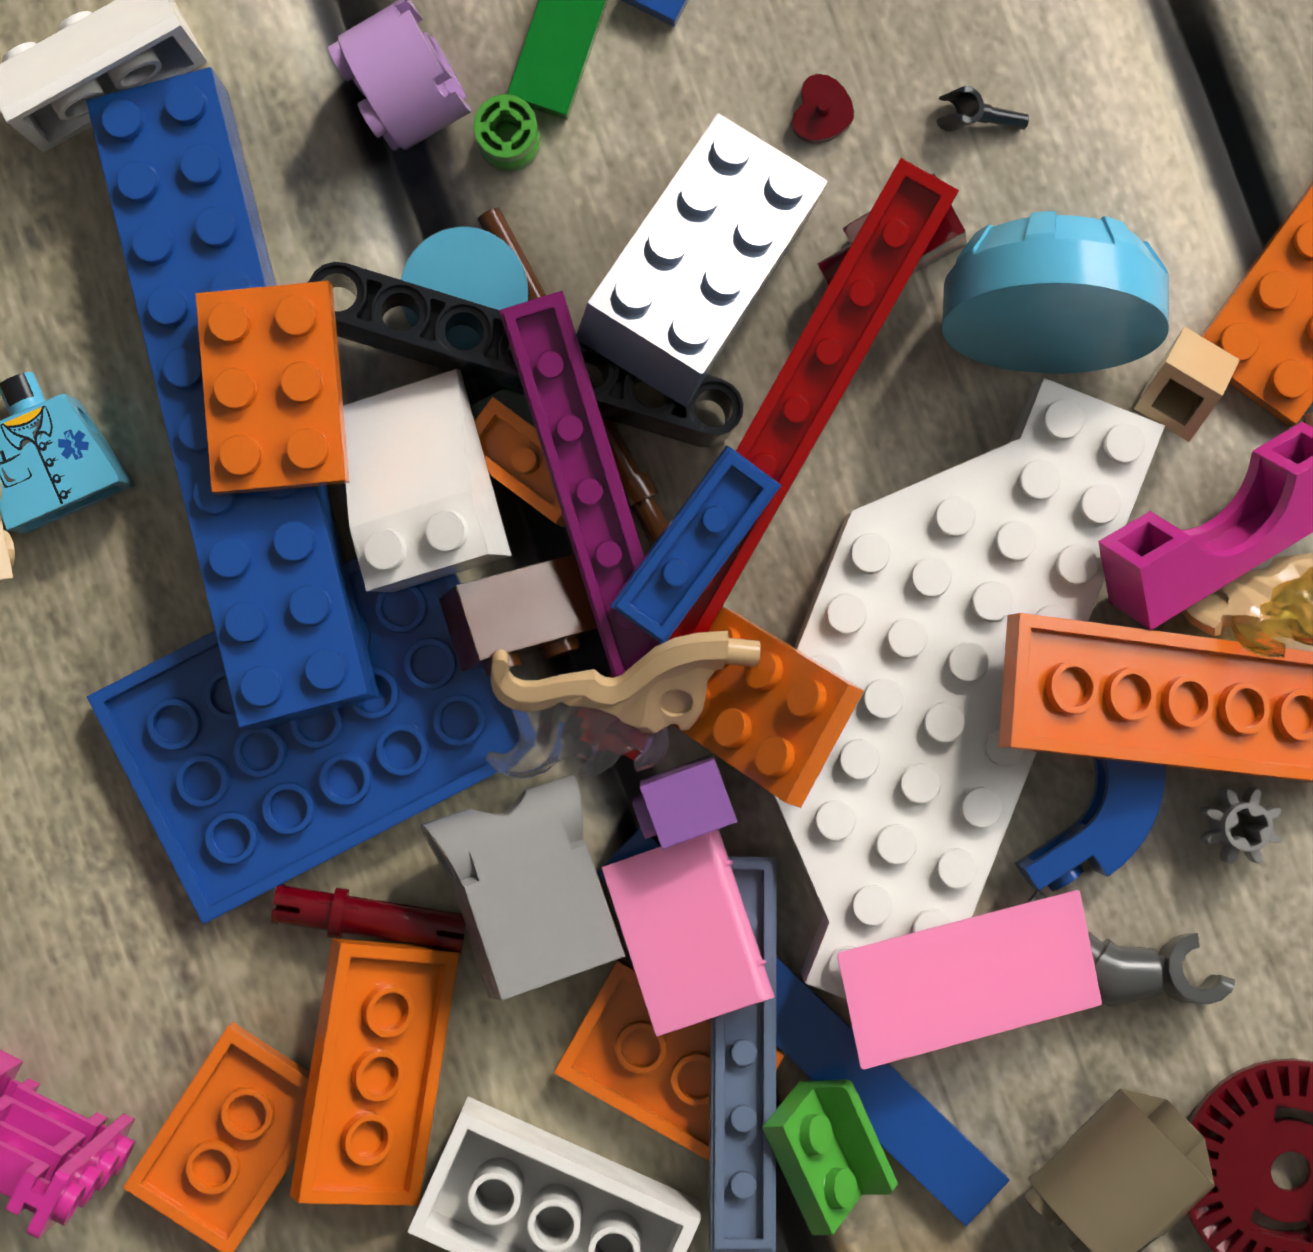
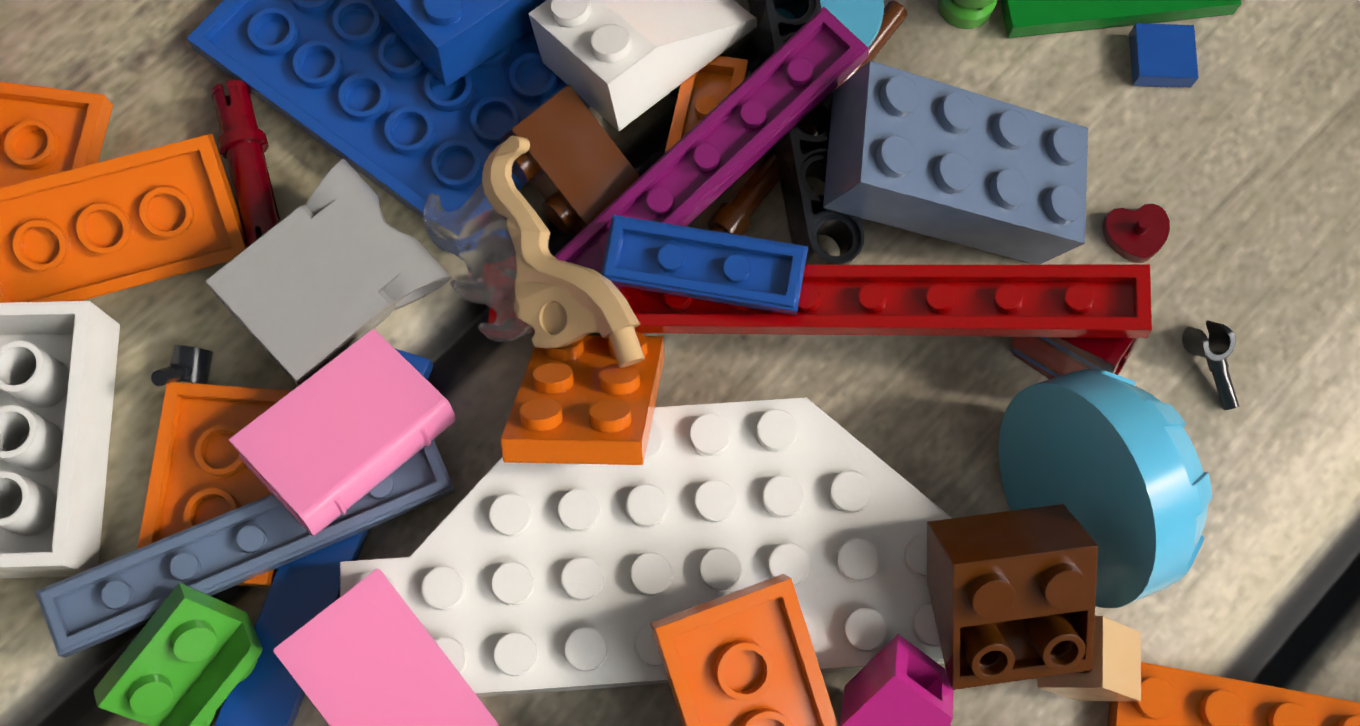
camera: 65 degrees right, 15 degrees down
(543, 1052) = (186, 365): none -> black hand
(683, 802) = (467, 372): medium lavender brick -> none
(1114, 431) = (1012, 595): none -> reddish brown slope

